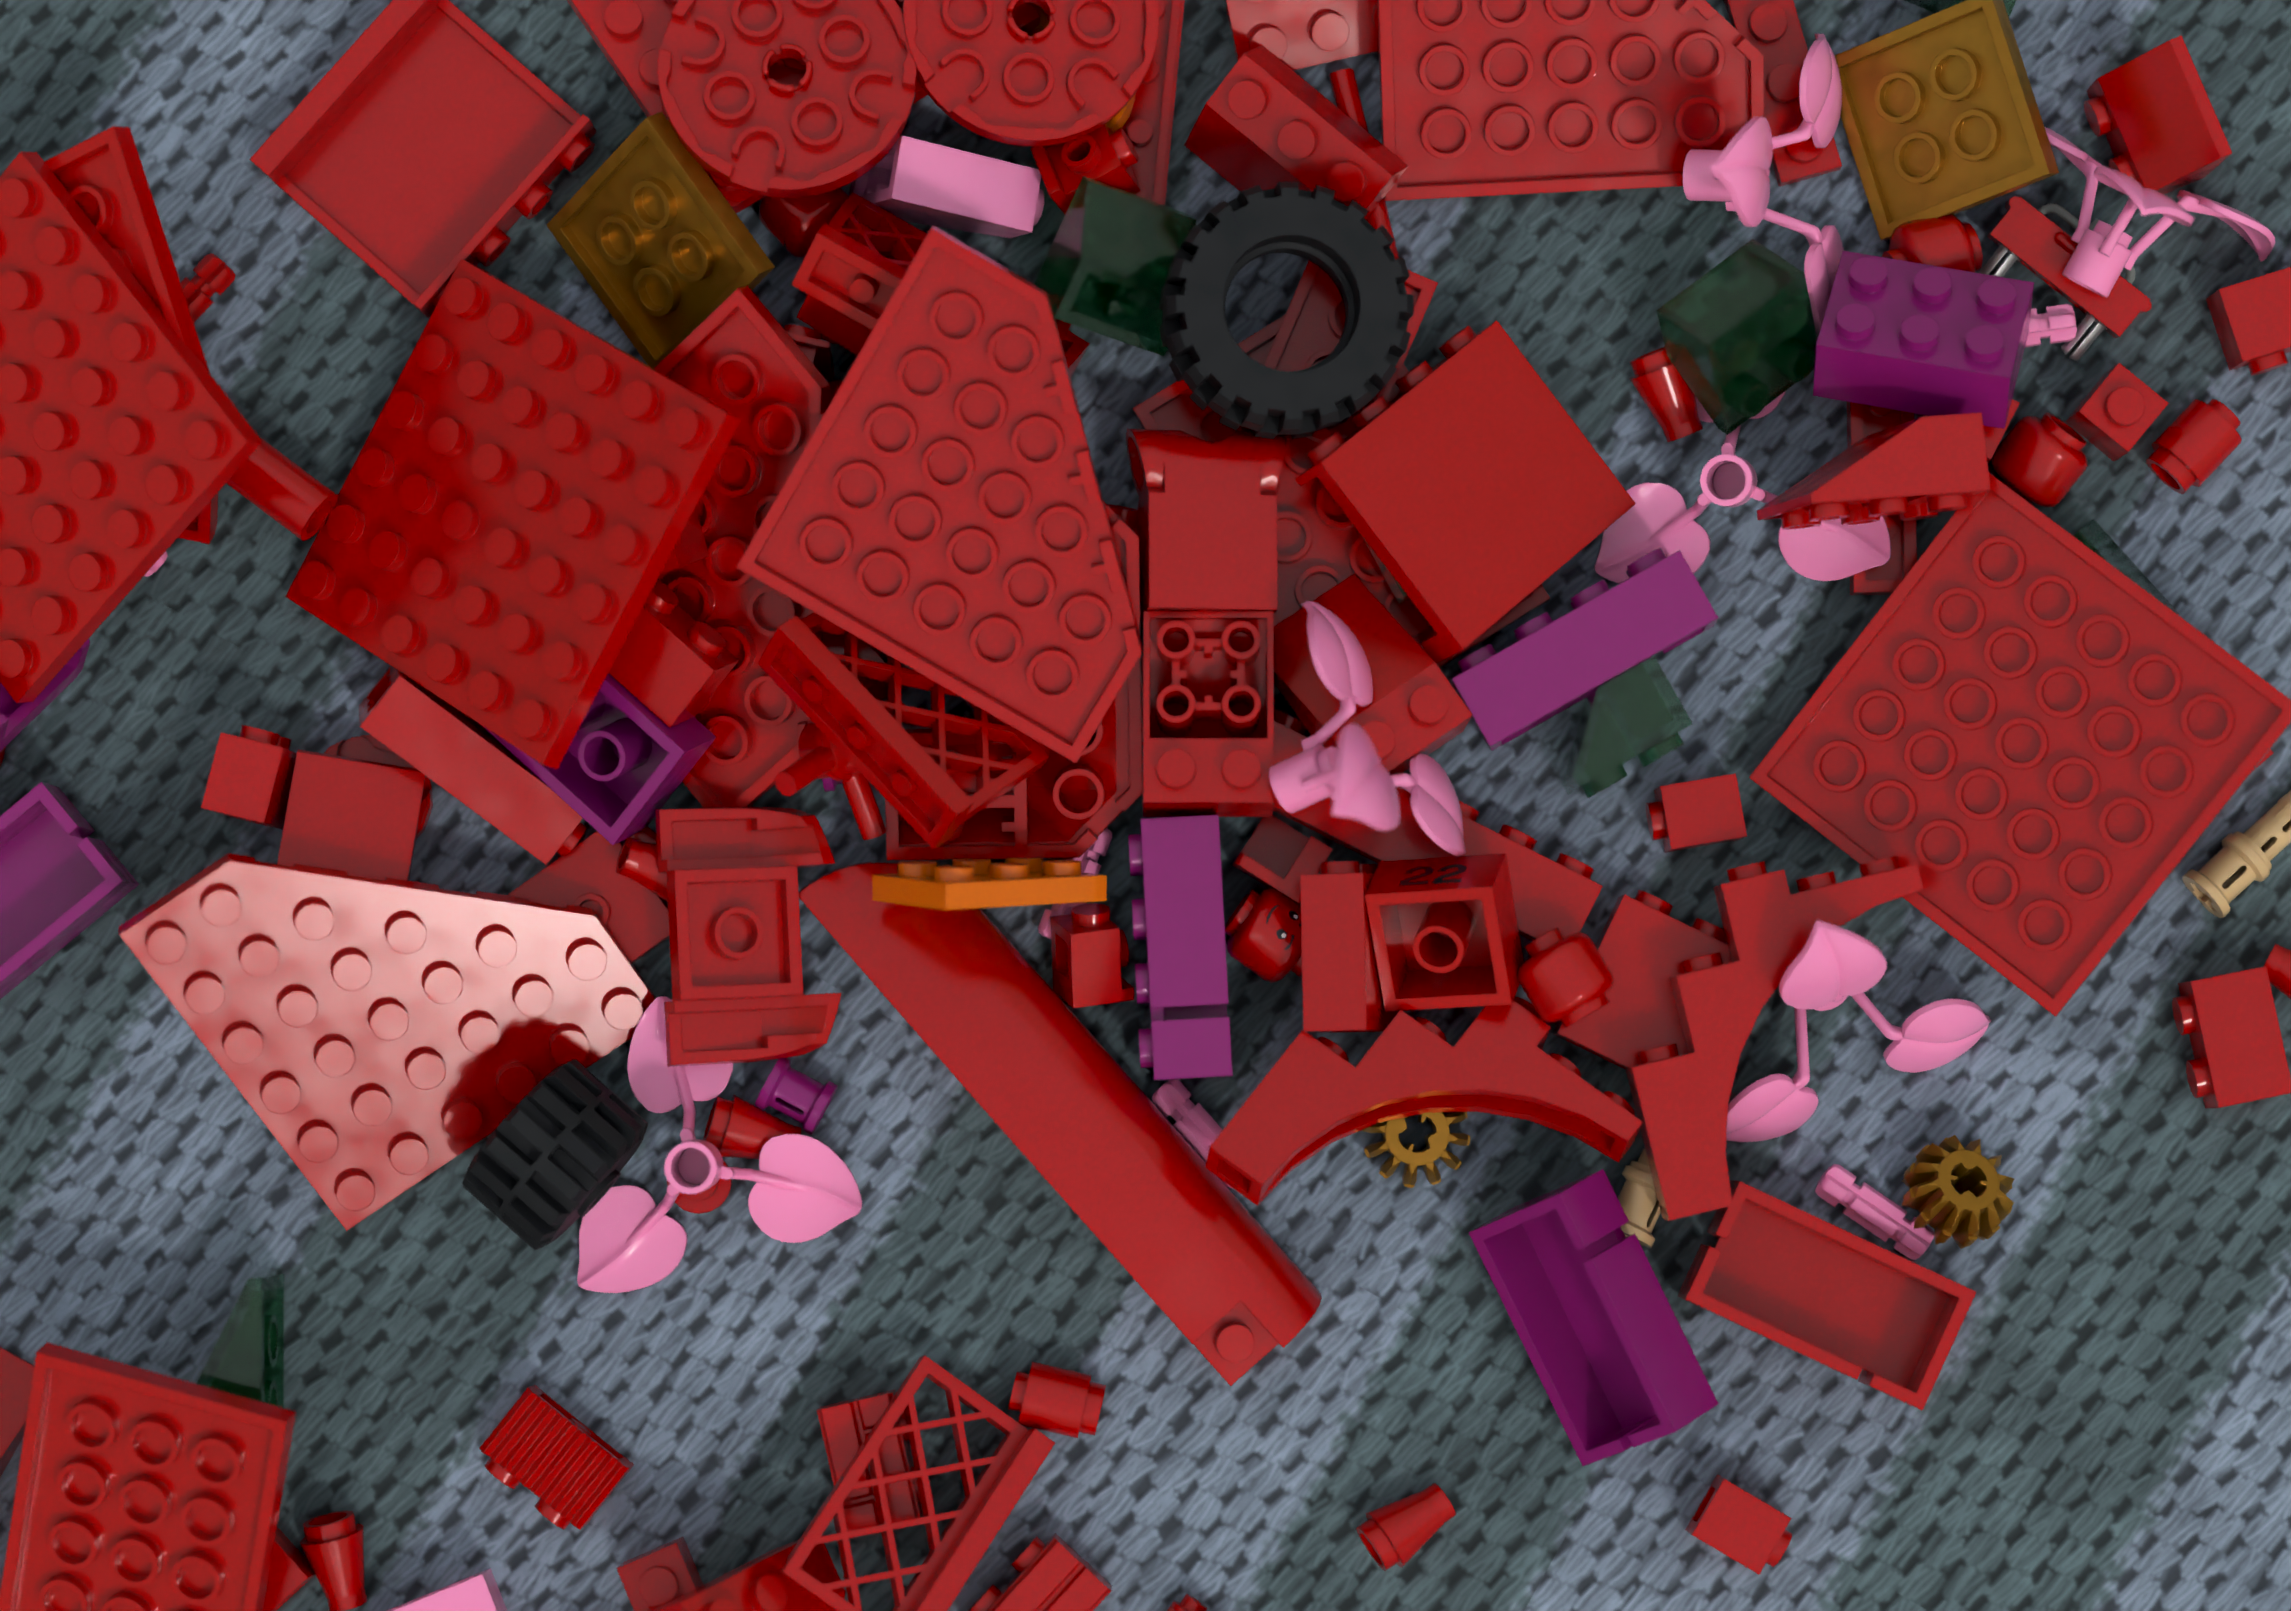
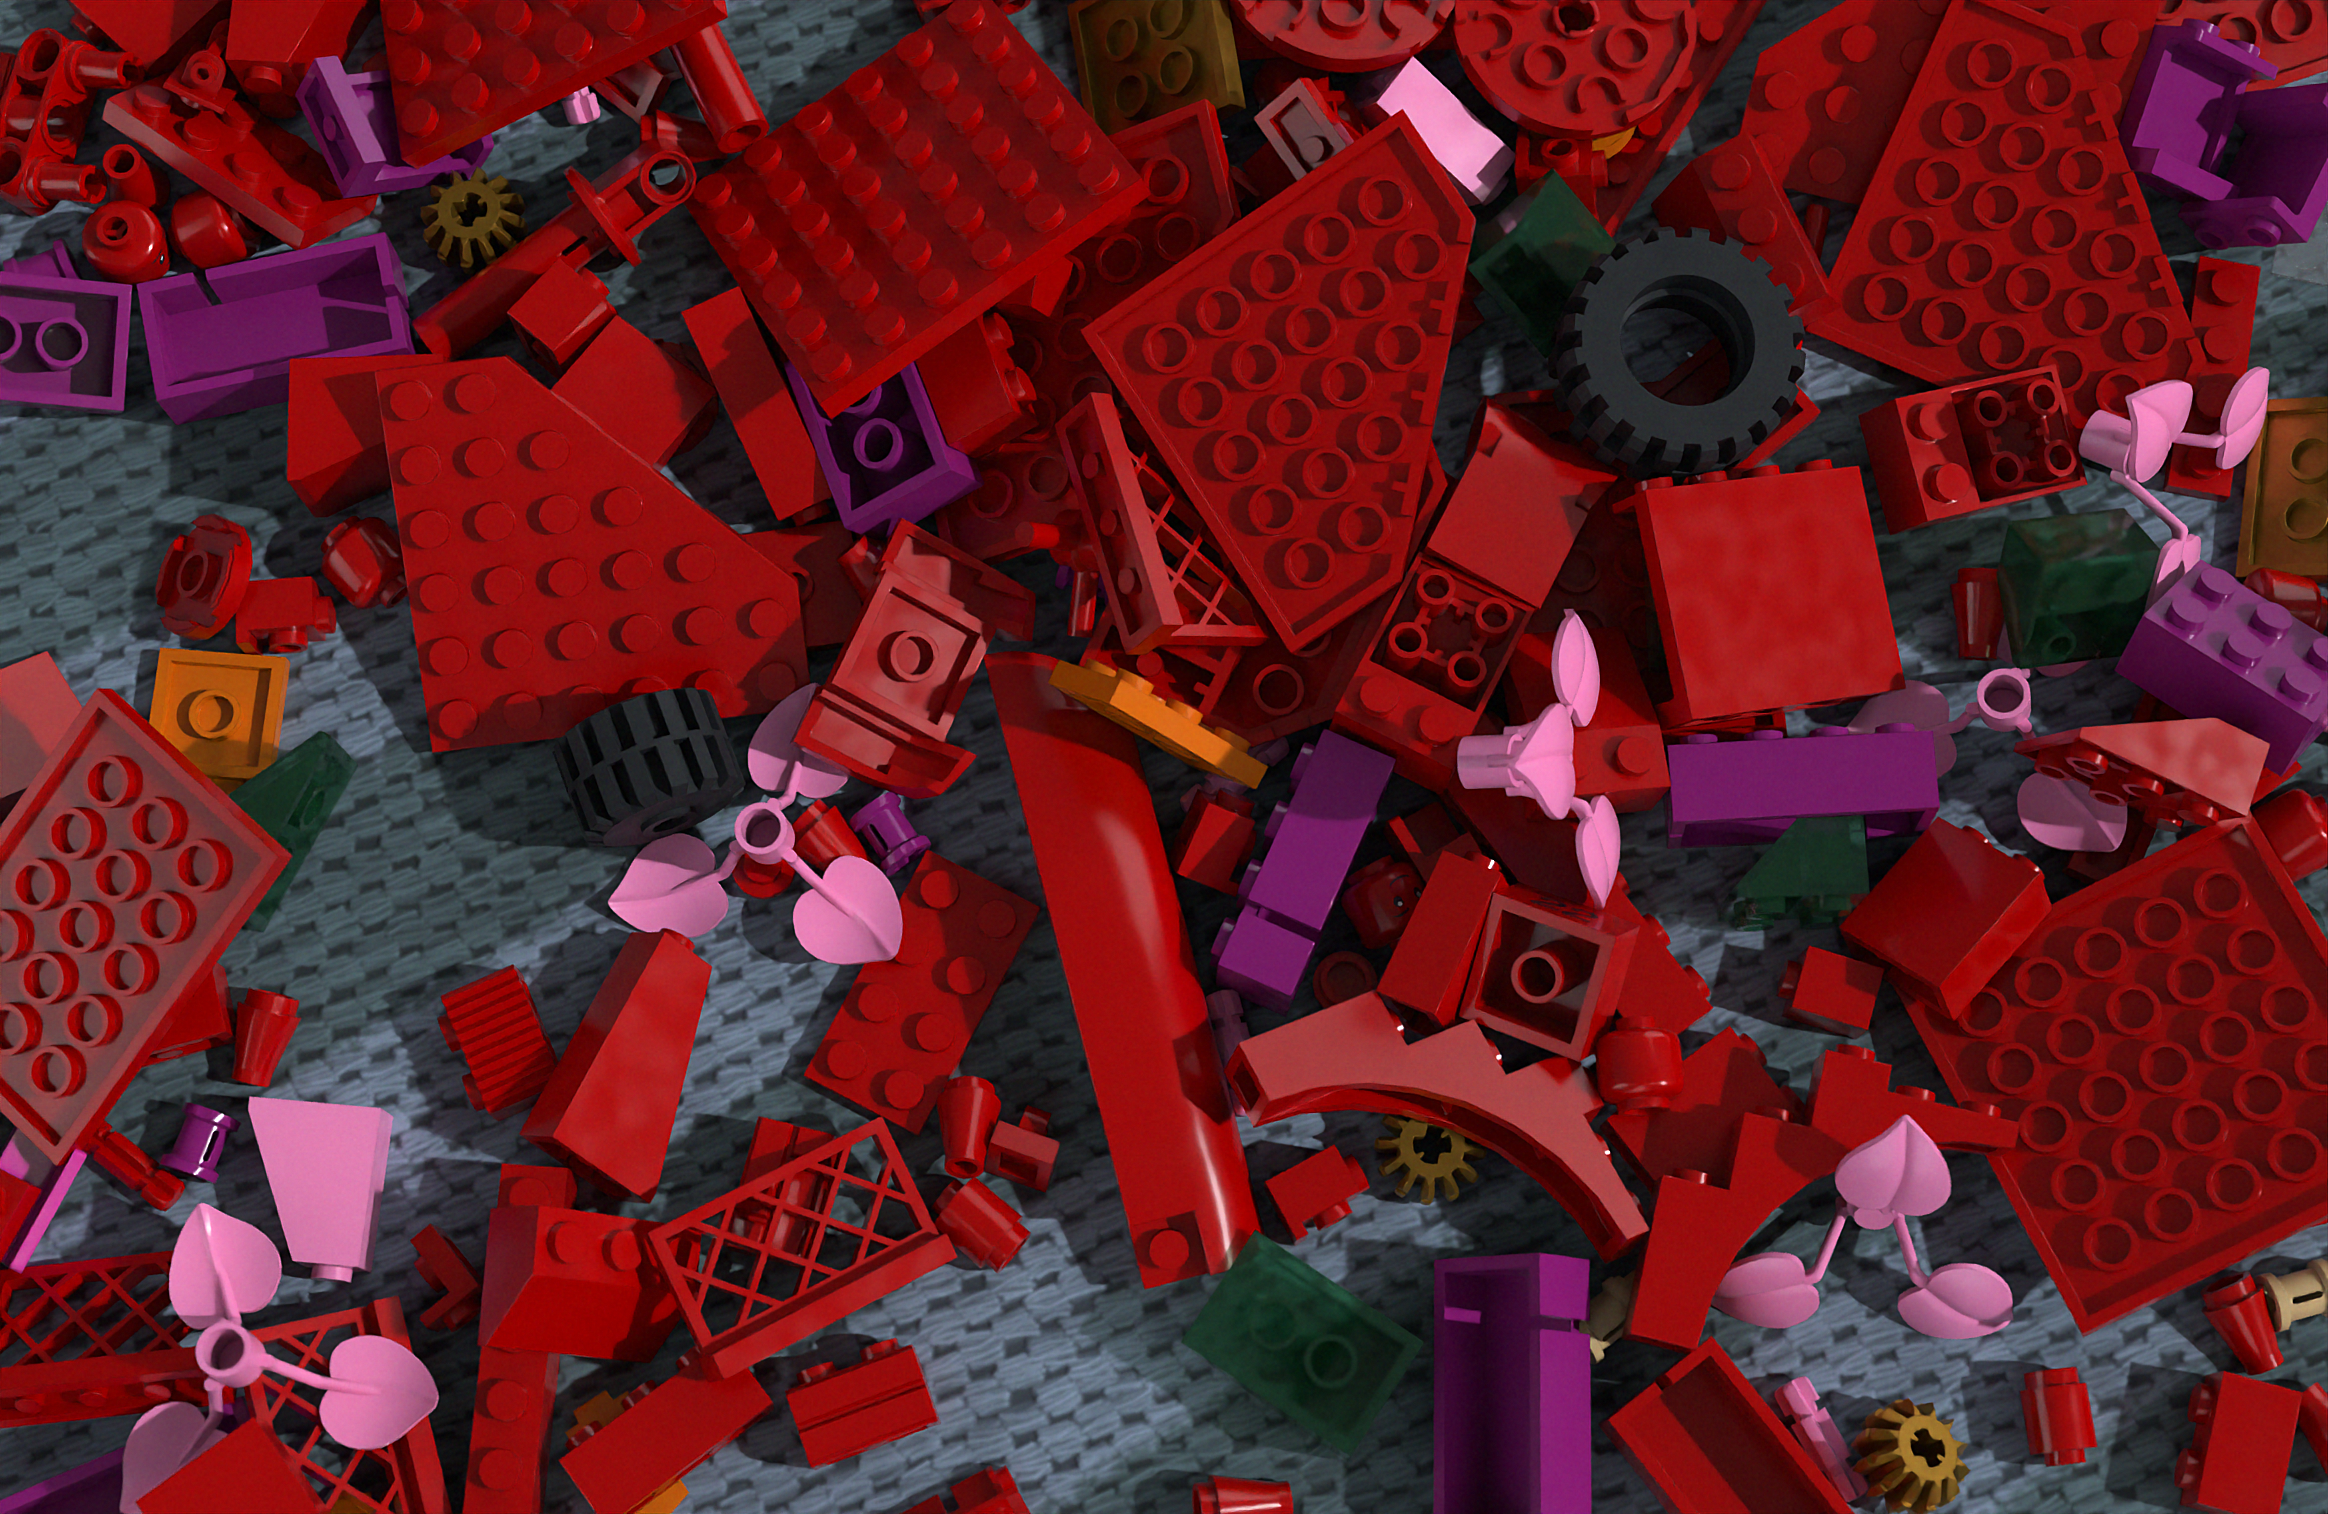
camera: 25 degrees right, 10 degrees down
(53, 1180) = (204, 577): none -> red tile
(100, 982) = (338, 430): none -> red slope
(128, 727) = (459, 206): none -> pearl gold gear
(138, 1299) = (221, 710): none -> orange tile
(142, 1177) = (283, 615): none -> red brick
(191, 1091) = (365, 562): none -> red head
(228, 656) = (600, 218): none -> red piece
(250, 546) = (686, 131): none -> red cone
(676, 1425) = (625, 1068): none -> red slope
(905, 1249) = (920, 1010): none -> red plate
(1001, 1319) = (967, 1122): none -> red cone
(1063, 1317) = (1024, 1151): none -> red tile
(1267, 1021) = (1343, 978): none -> red plate
(1336, 1222) = (1316, 1192): none -> red brick
(1392, 1366) = (1302, 1344): none -> clear green slope
(1591, 243) = (1971, 448): none -> red slope
(1769, 696) = (1947, 916): none -> red brick
(2067, 1089) = (2057, 1416): none -> red brick
(2186, 920) = (2243, 1320): none -> red cone

